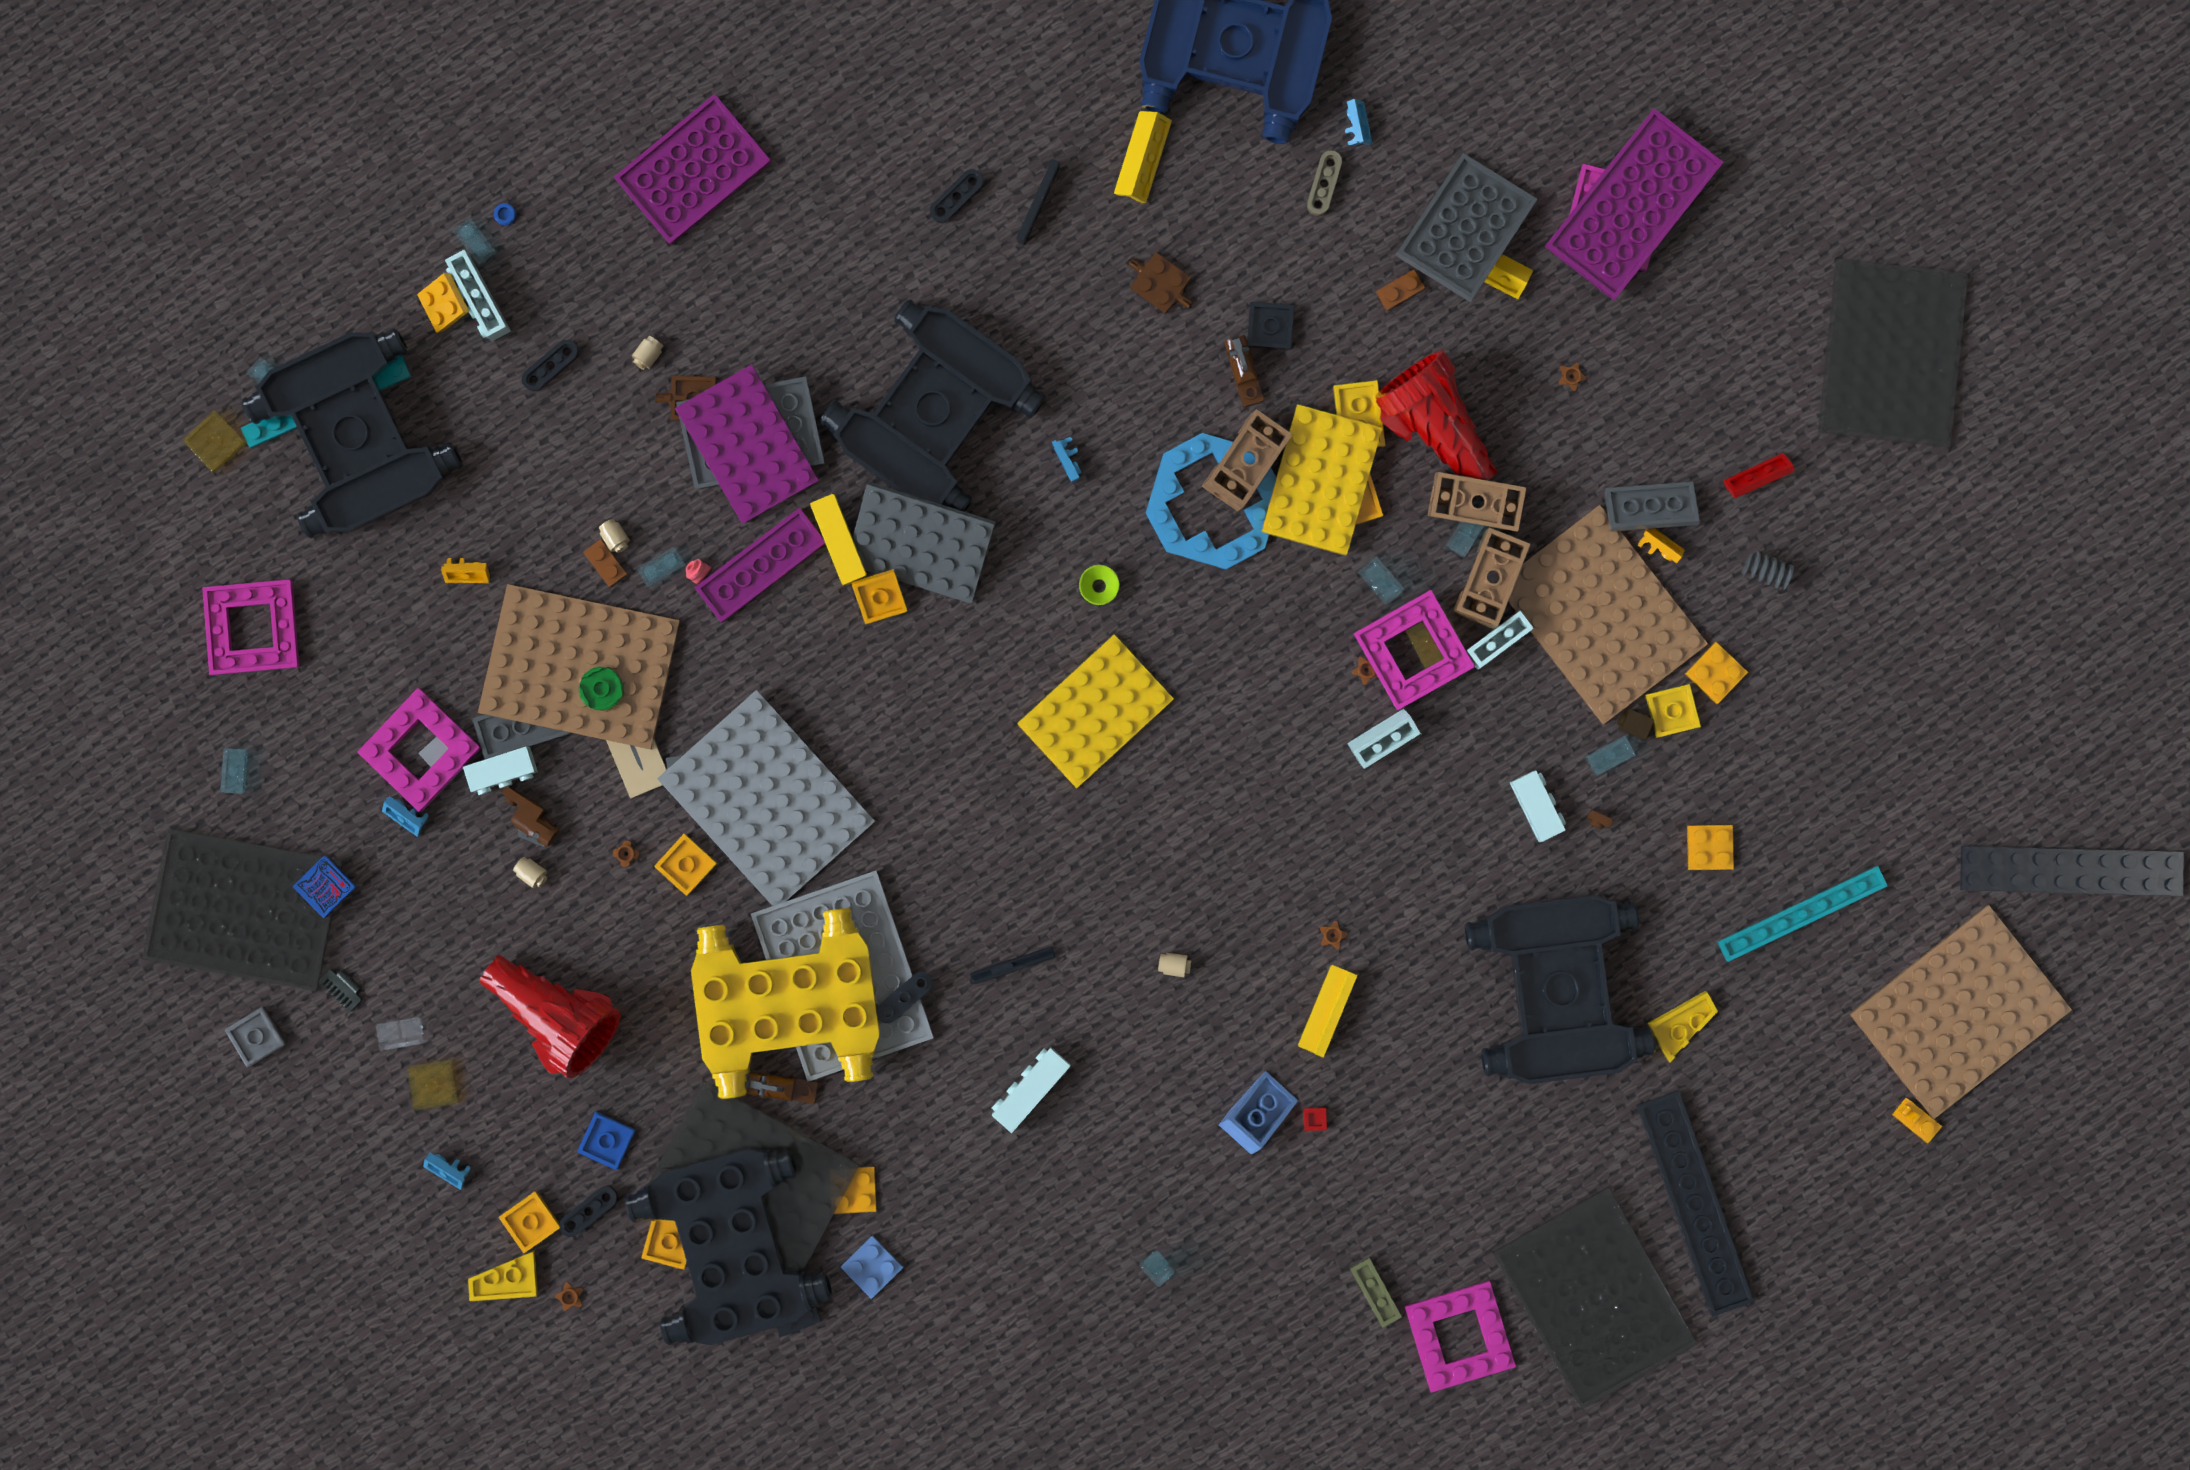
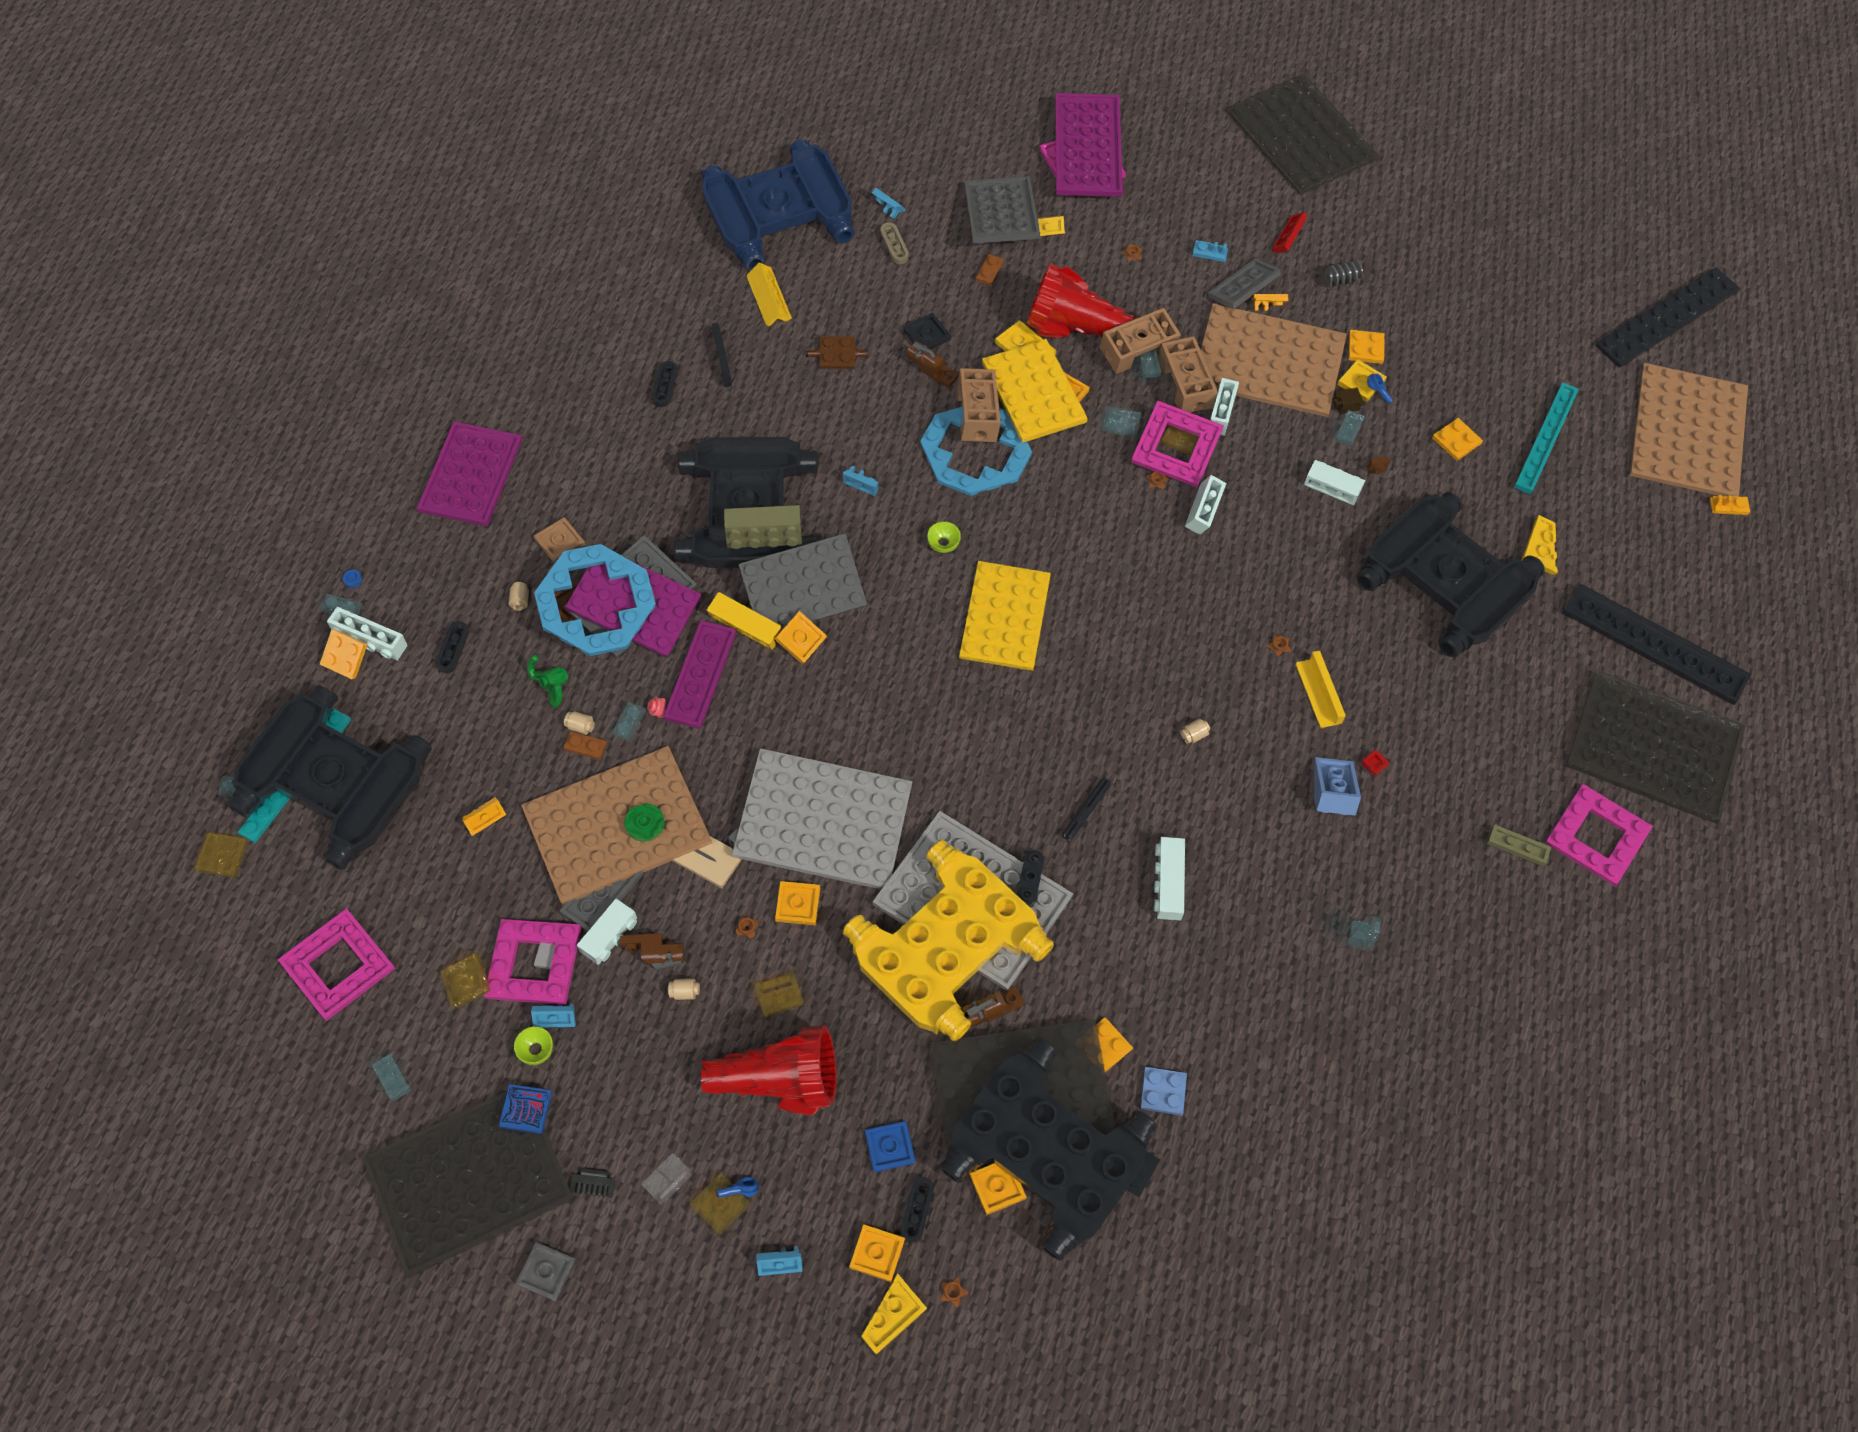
camera: 40 degrees left, 25 degrees down
(349, 726) = (465, 981): none -> clear yellow plate
(357, 829) = (526, 1039): none -> lime piece
(462, 1088) = (746, 1186): none -> blue plate
(606, 943) = (780, 999): none -> clear yellow plate
(616, 470) = (549, 679): none -> green piece
(661, 443) = (617, 568): none -> dark azure plate
(727, 314) = (558, 538): none -> medium nougat plate
(916, 463) = (763, 526): none -> olive brick
(1655, 435) = (1210, 251): none -> dark azure plate
(1679, 729) = (1376, 383): none -> blue plate

